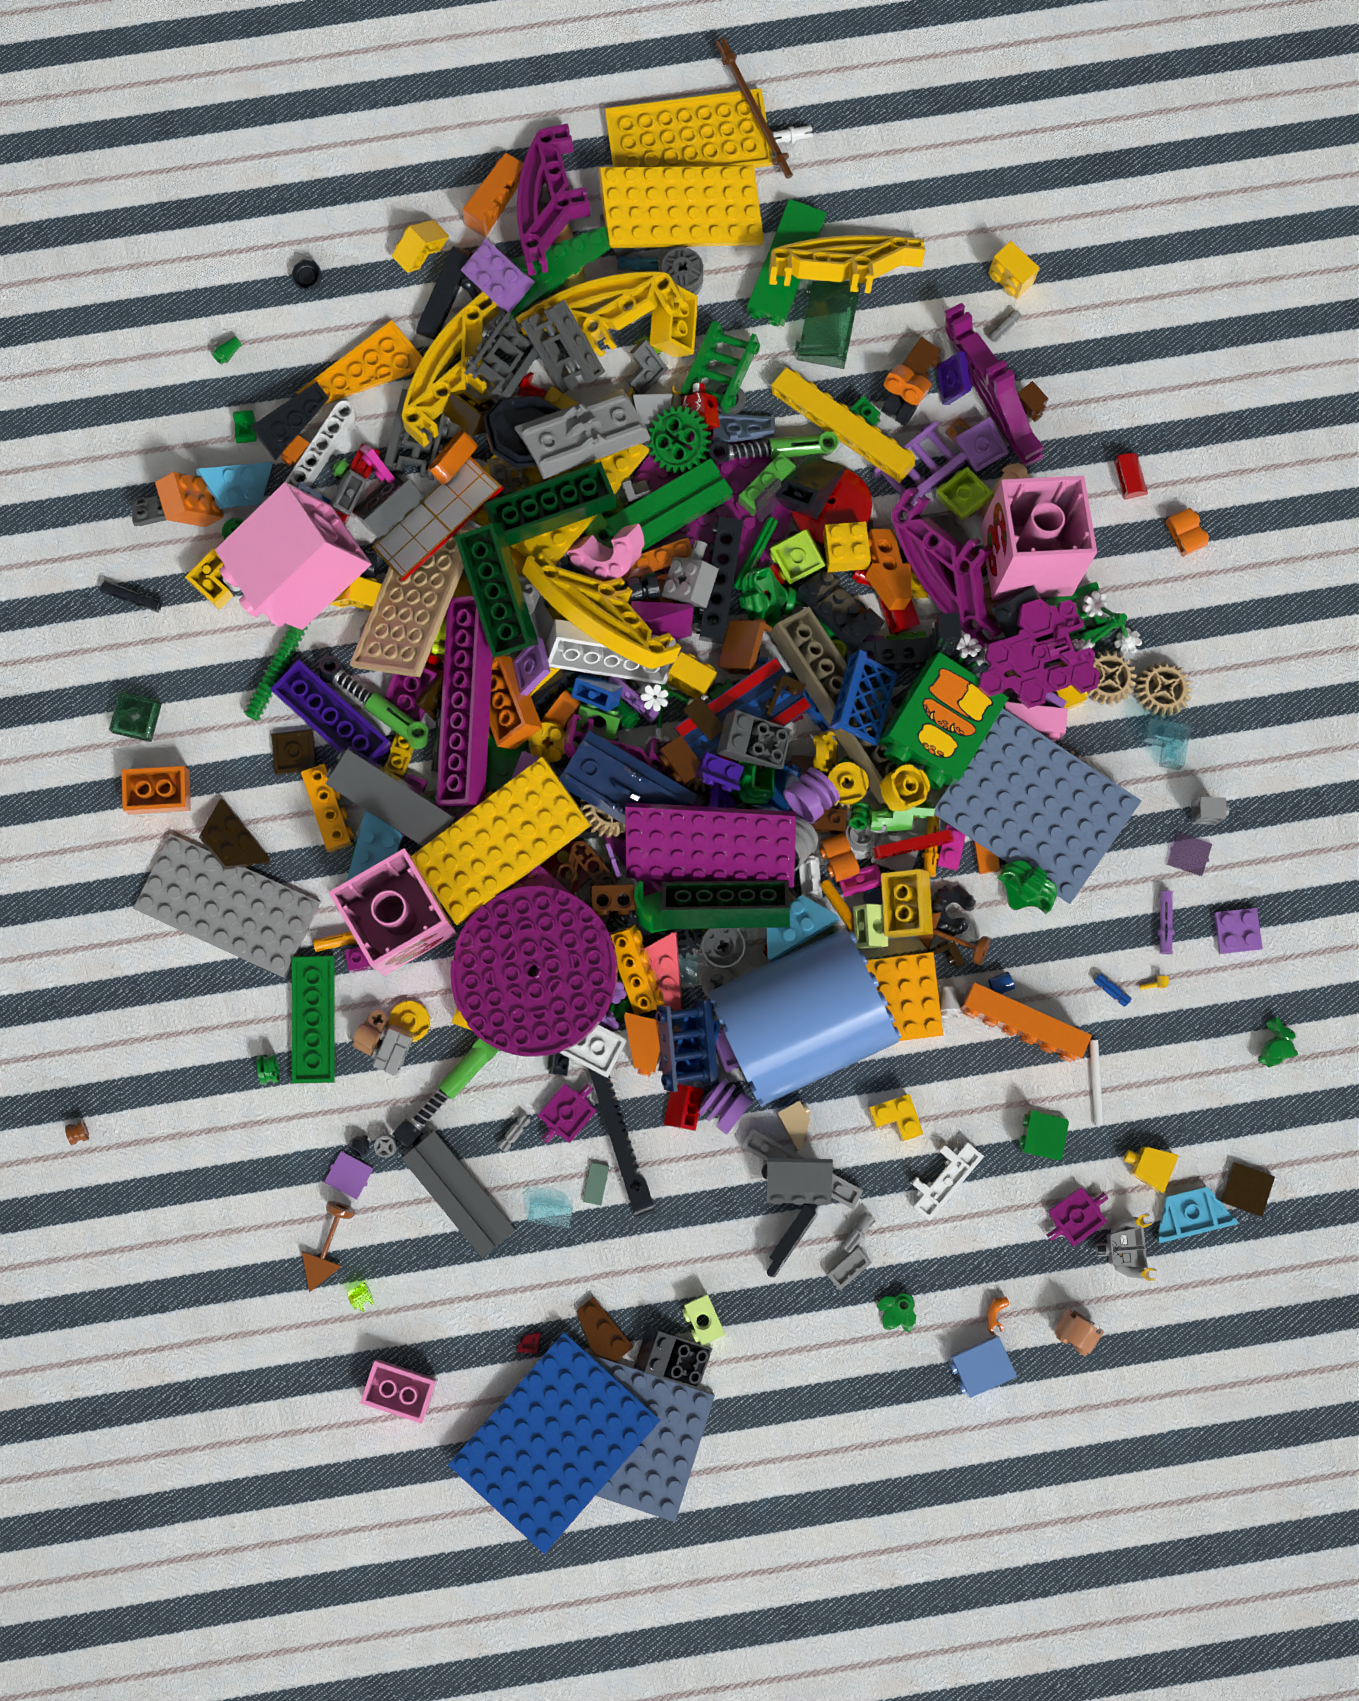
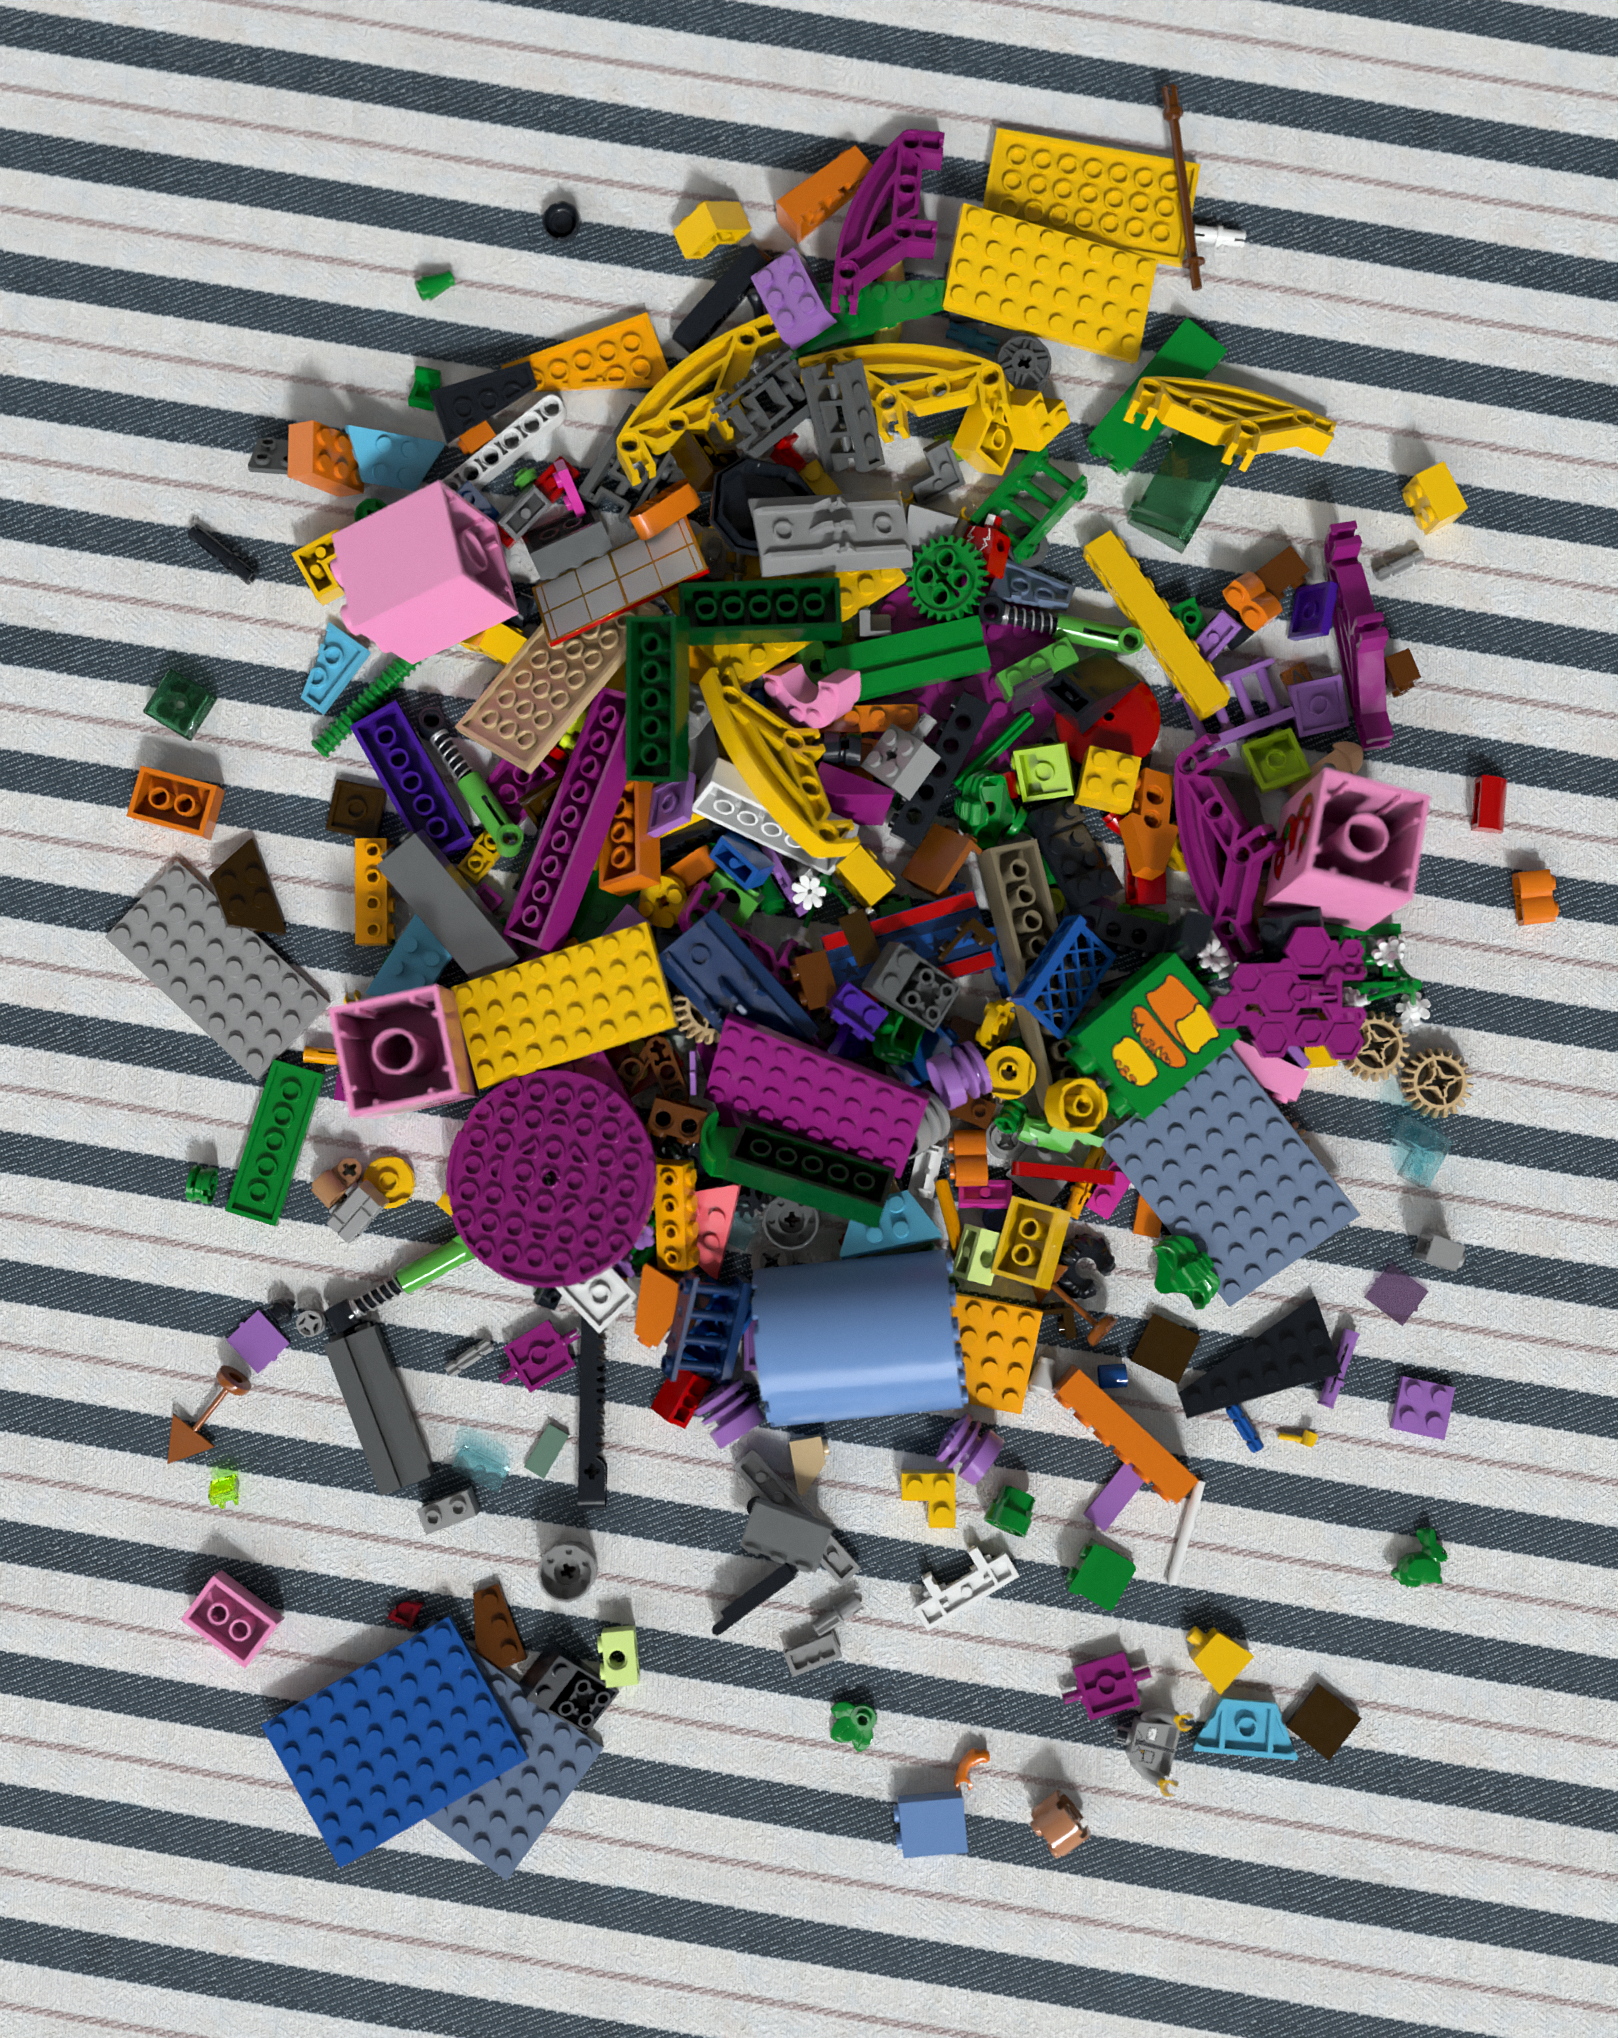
camera: 25 degrees right, 5 degrees up
(243, 652) = (335, 667): none -> medium azure wing
(537, 1252) = (448, 1510): none -> light grey brick
(630, 1266) = (562, 1586): none -> light grey wheel
(704, 305) = (1035, 419): none -> yellow brick
(890, 417) = (1217, 635): none -> medium lavender tile
(914, 1072) = (969, 1448): none -> medium lavender wheel
(961, 1109) = (1011, 1511): none -> green piece
(1033, 950) = (1165, 1348): none -> dark brown tile
(1034, 1073) = (1114, 1496): none -> medium lavender tile
(1120, 930) = (1279, 1359): none -> black wing

